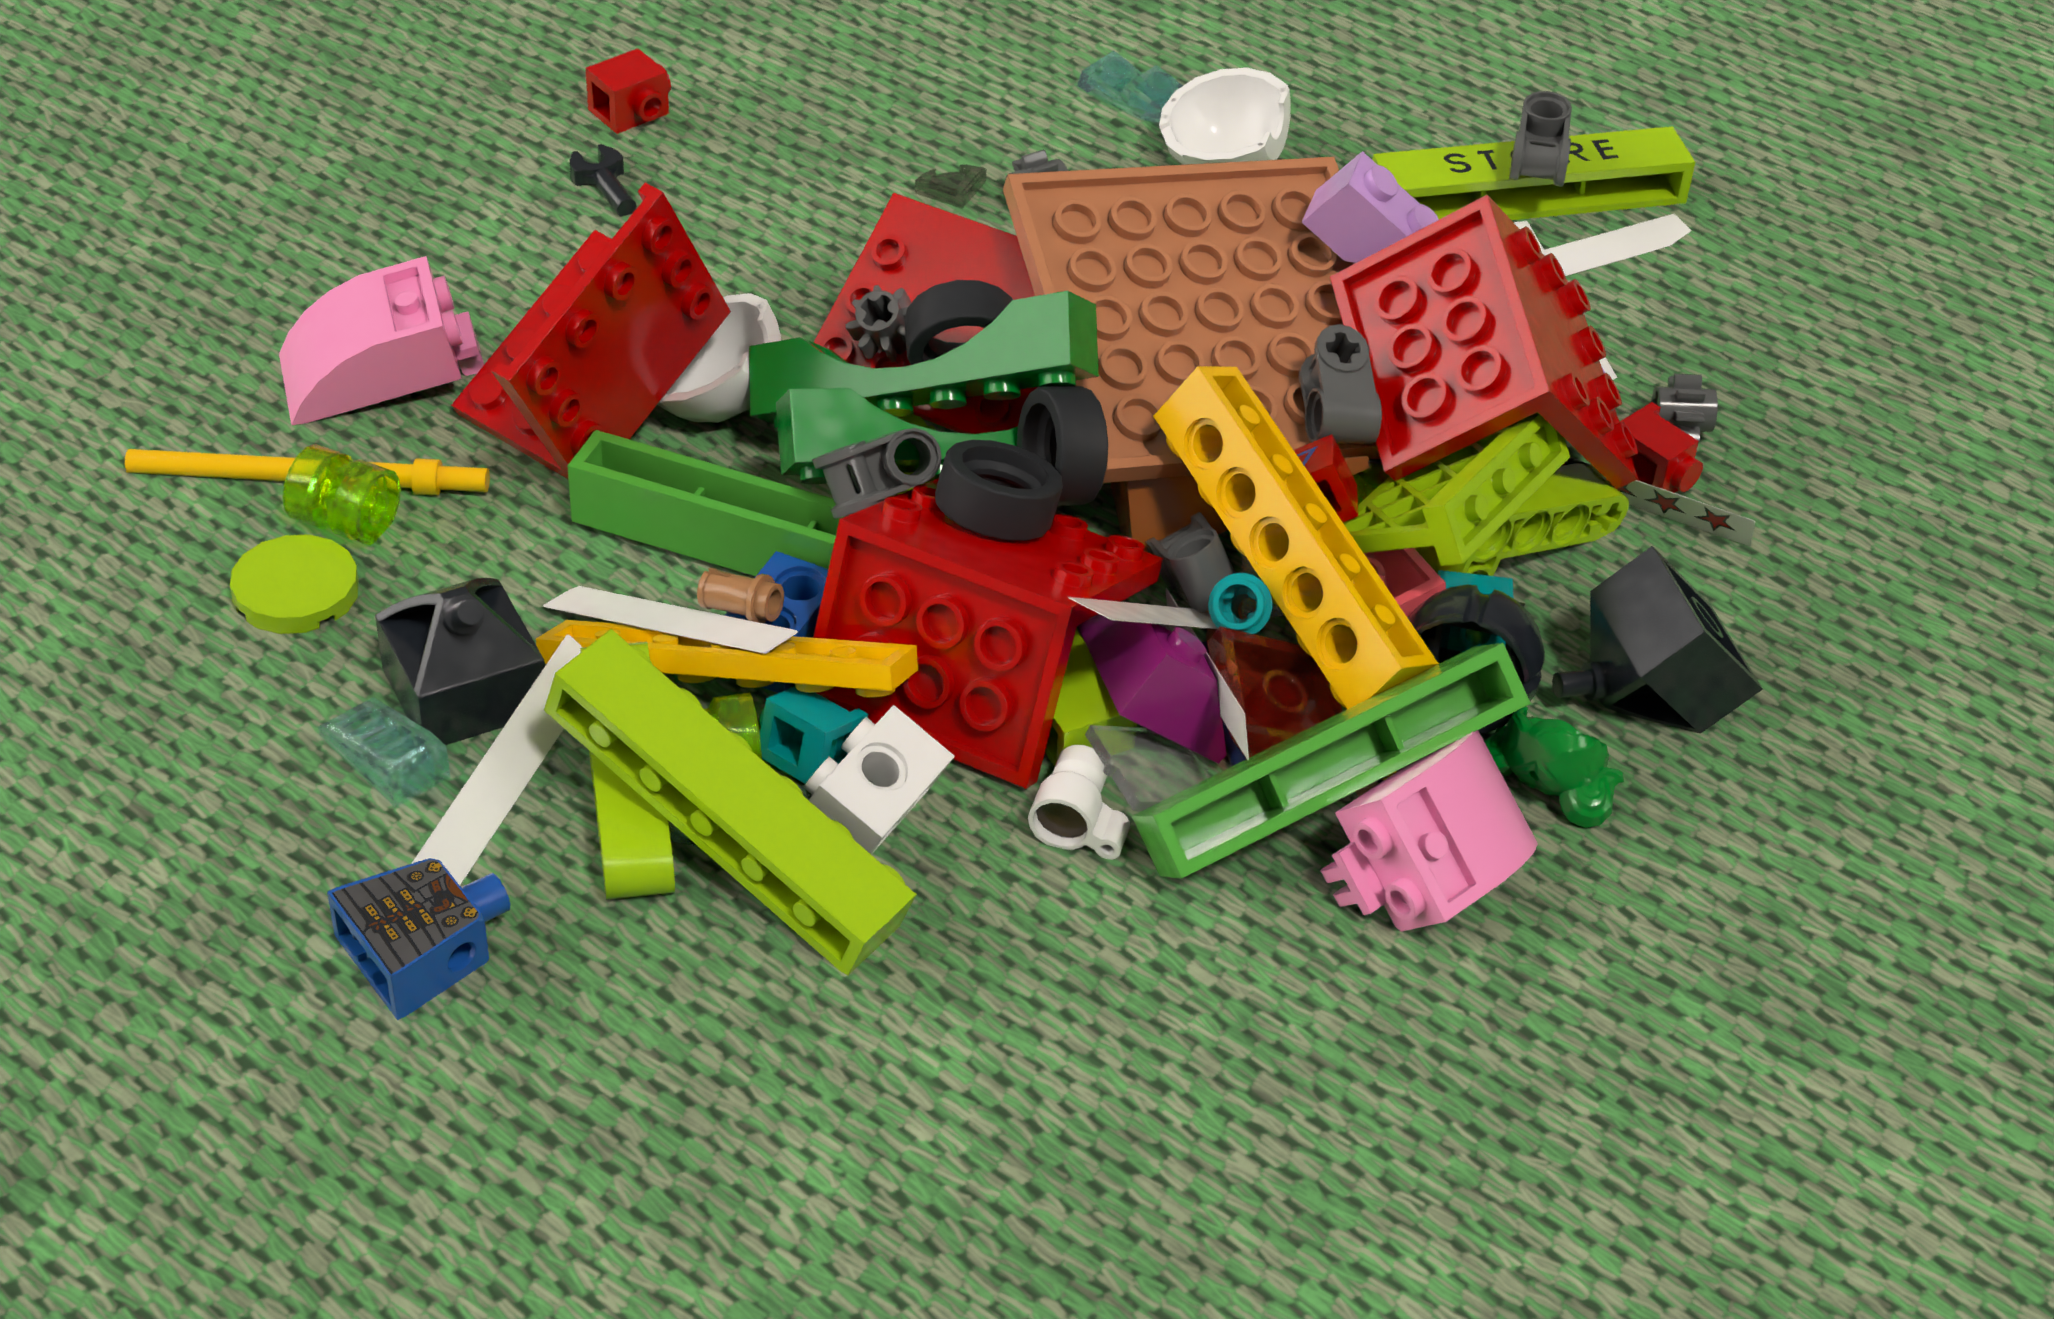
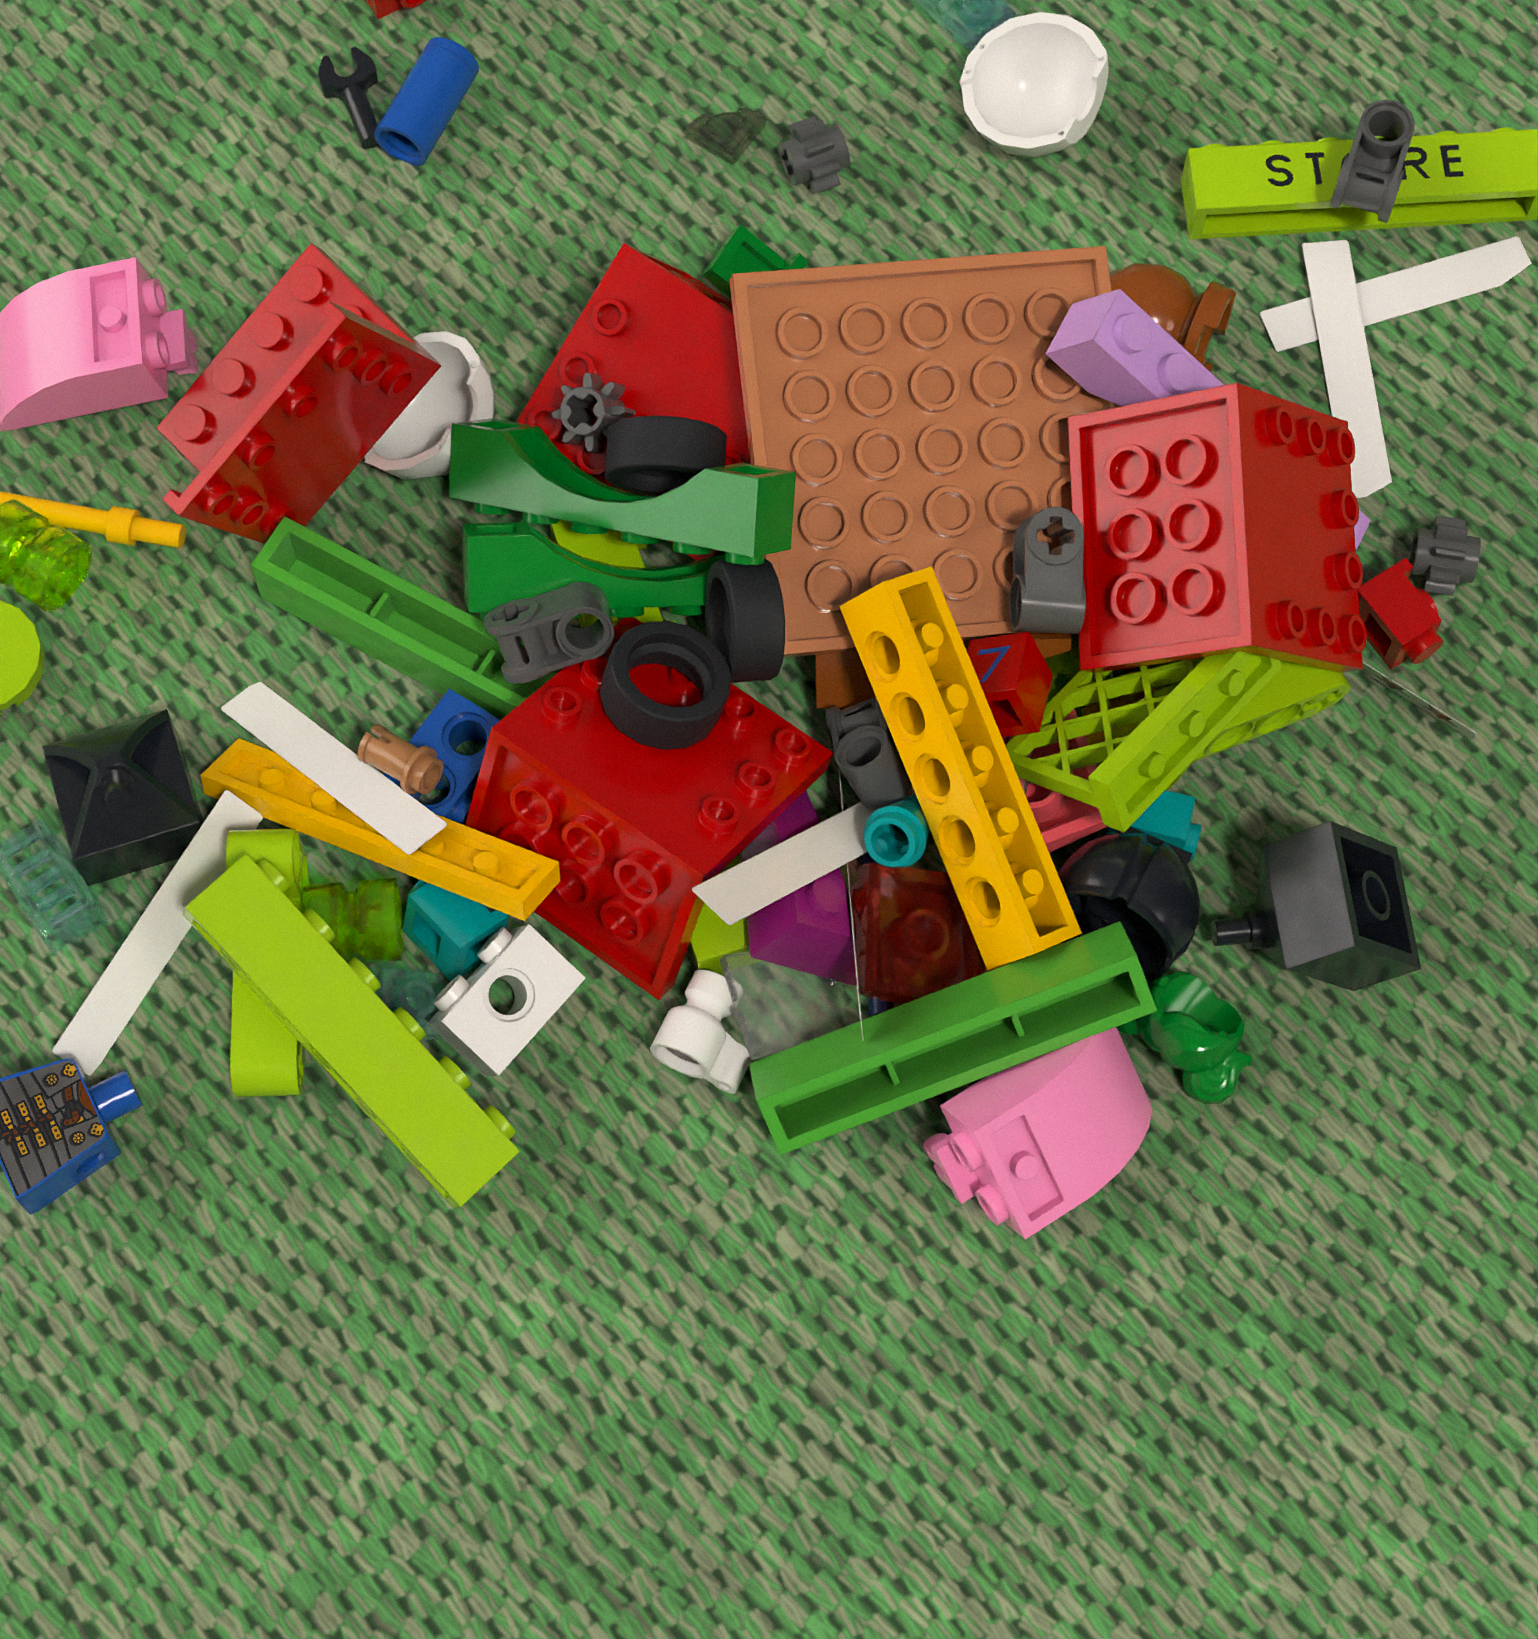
camera: 10 degrees right, 25 degrees up
(679, 164) = (426, 101): none -> blue pin

